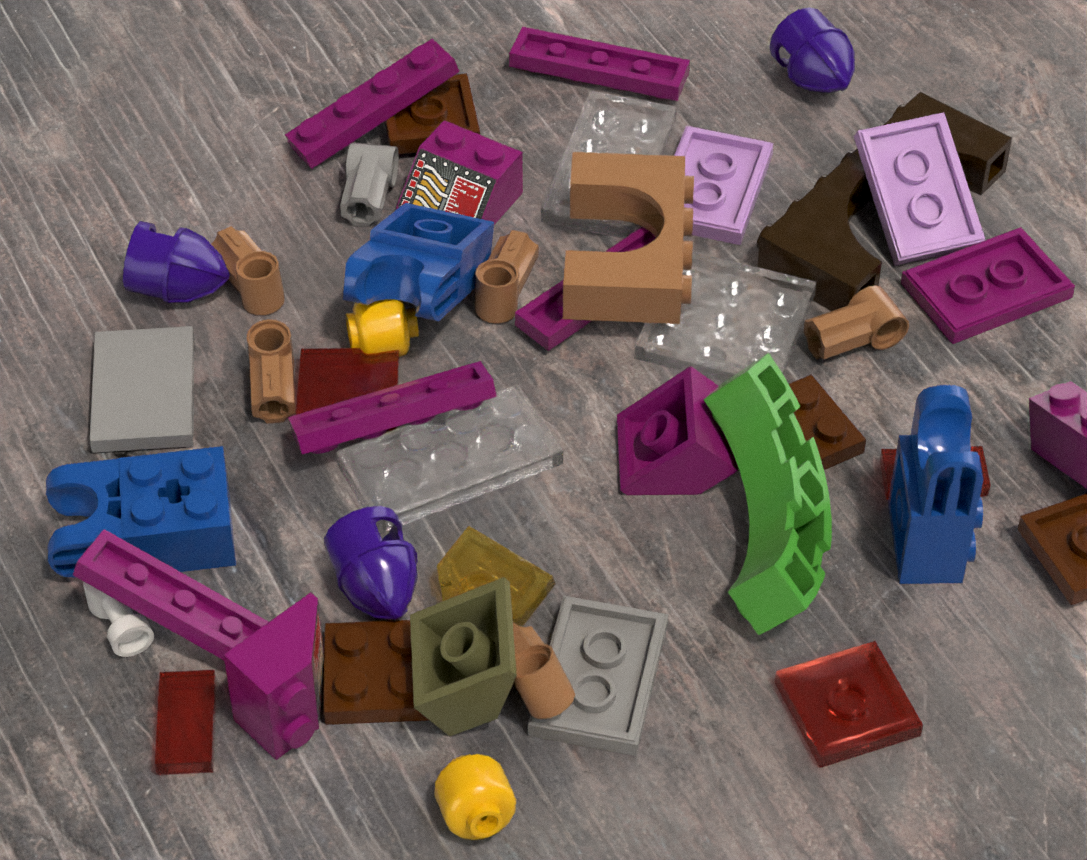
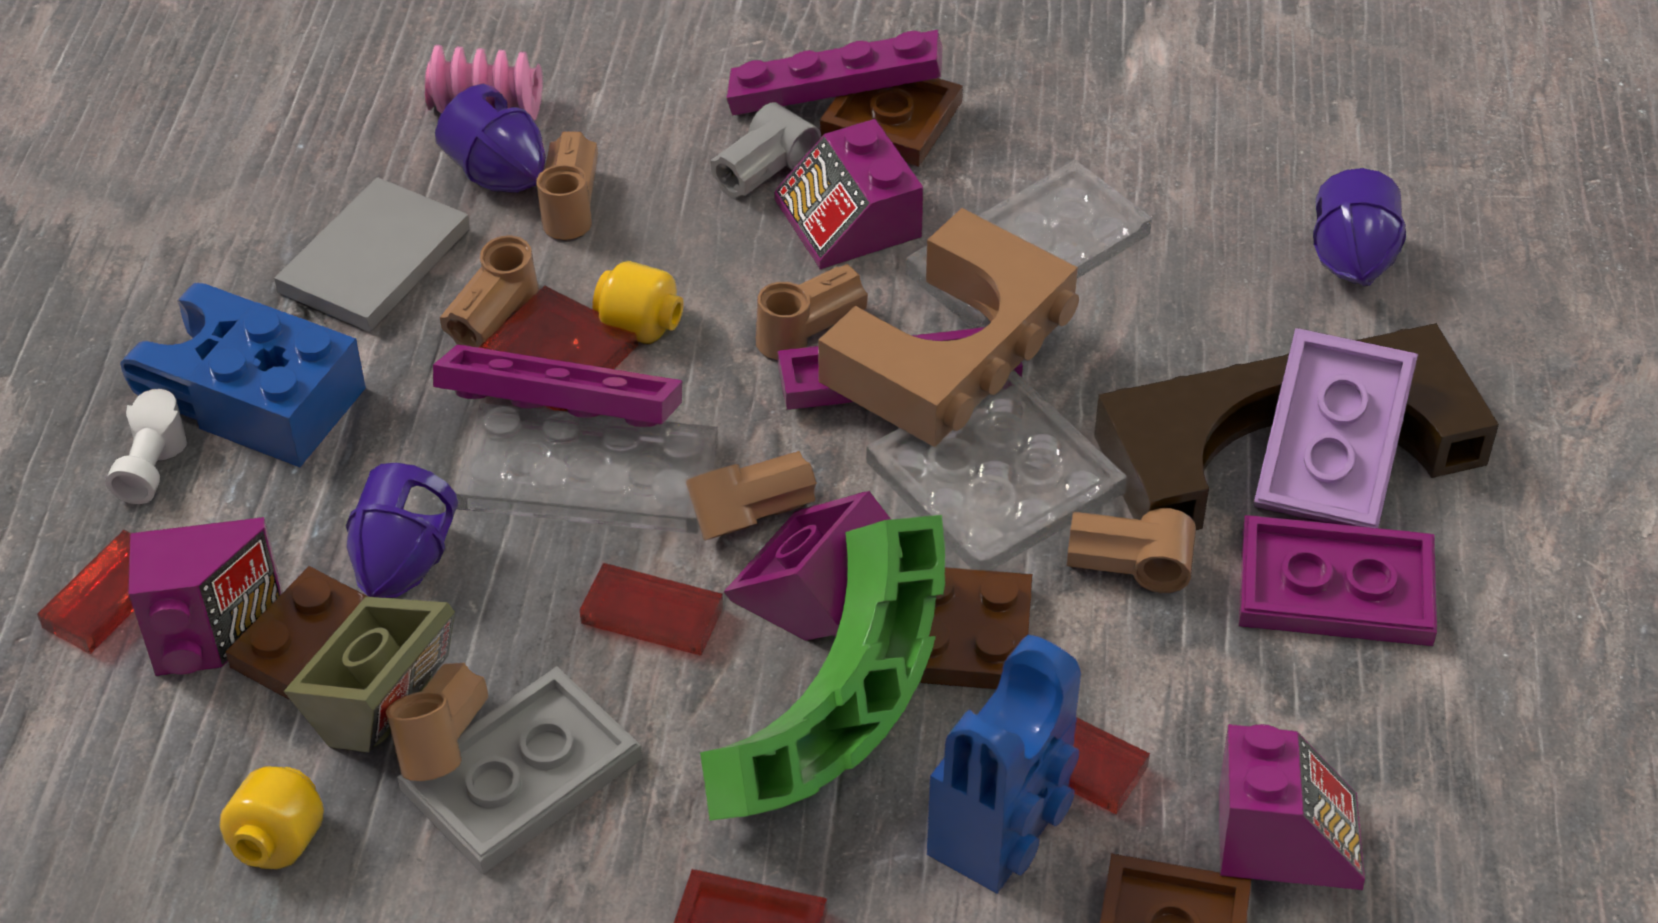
camera: 35 degrees right, 0 degrees up
(109, 224) = (517, 83): none -> bright pink piece
(165, 595) = (172, 446): magenta plate -> none
(419, 259) = (707, 247): blue brick -> none
(480, 560) = (496, 612): clear yellow plate -> none
(583, 419) = (738, 496): none -> medium nougat piece
(586, 526) = (651, 609): none -> clear red tile
(599, 63) = (1120, 138): magenta plate -> none
(726, 180) = (1133, 321): lavender tile -> none

